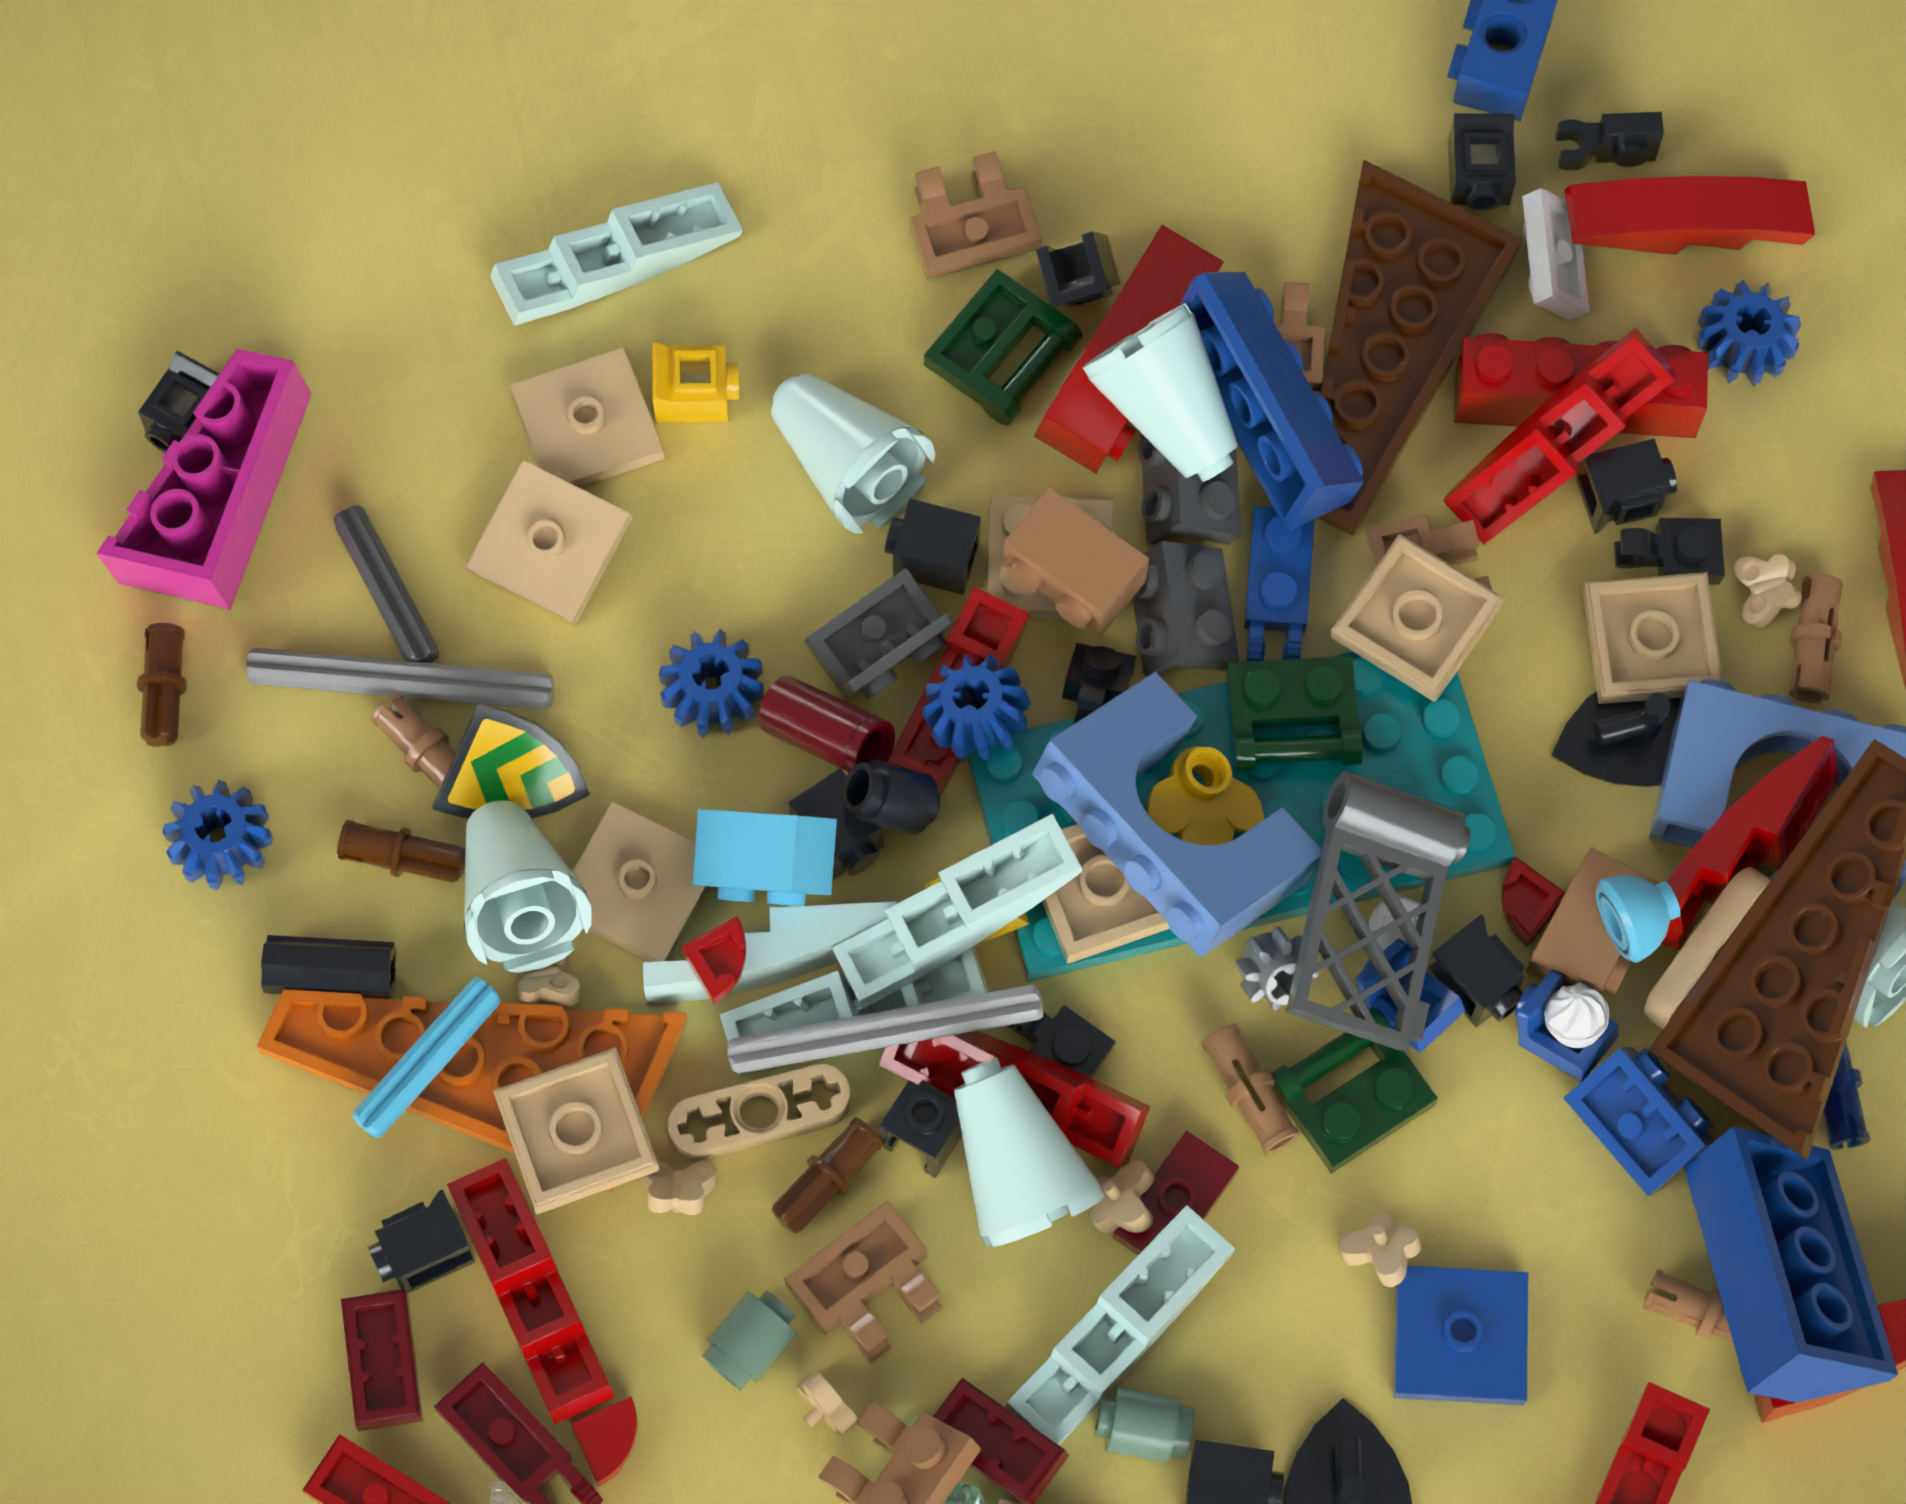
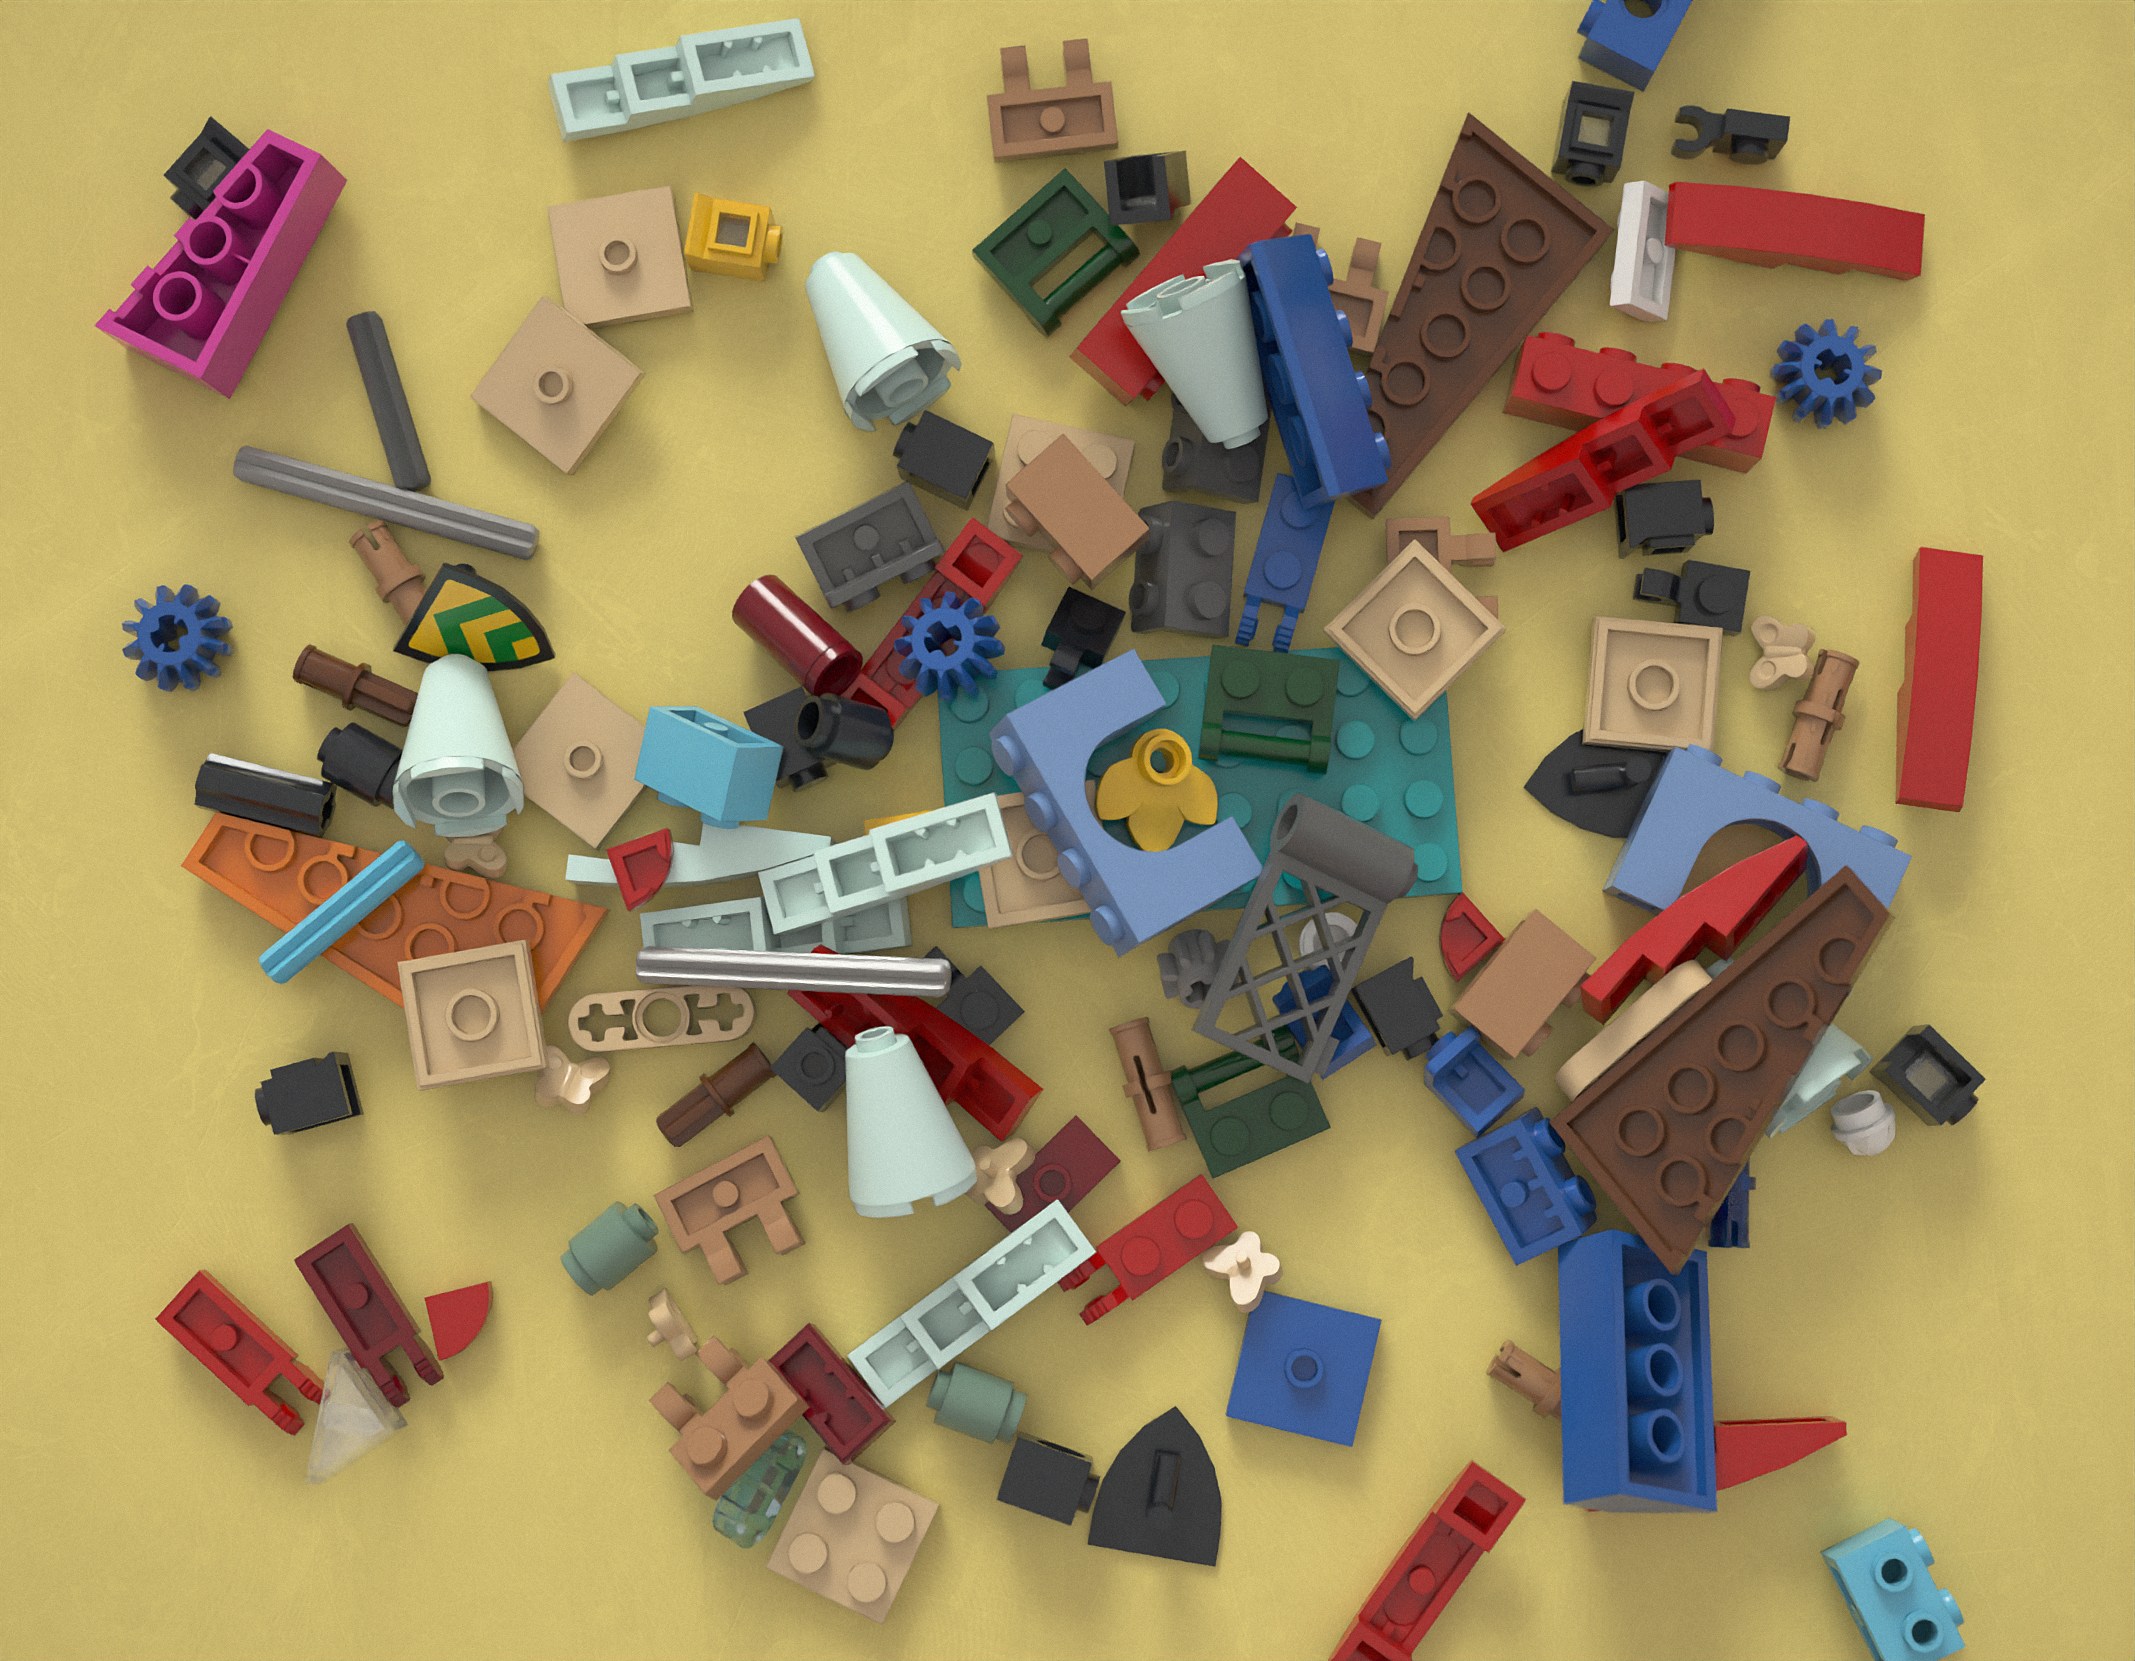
camera: 15 degrees right, 15 degrees up
(161, 684) = (148, 468): reddish brown axle -> none
(381, 1360) = (254, 1201): dark red plate -> none
(422, 921) = (360, 763): none -> black brick
(530, 1291) = (408, 1160): red slope -> none
(690, 694) = (675, 555): blue gear -> none
(1288, 1244) = (1154, 1245): none -> red hinge
(1576, 1015) = (1484, 1077): white plate -> none
(1636, 913) = (1564, 998): medium azure brick -> none

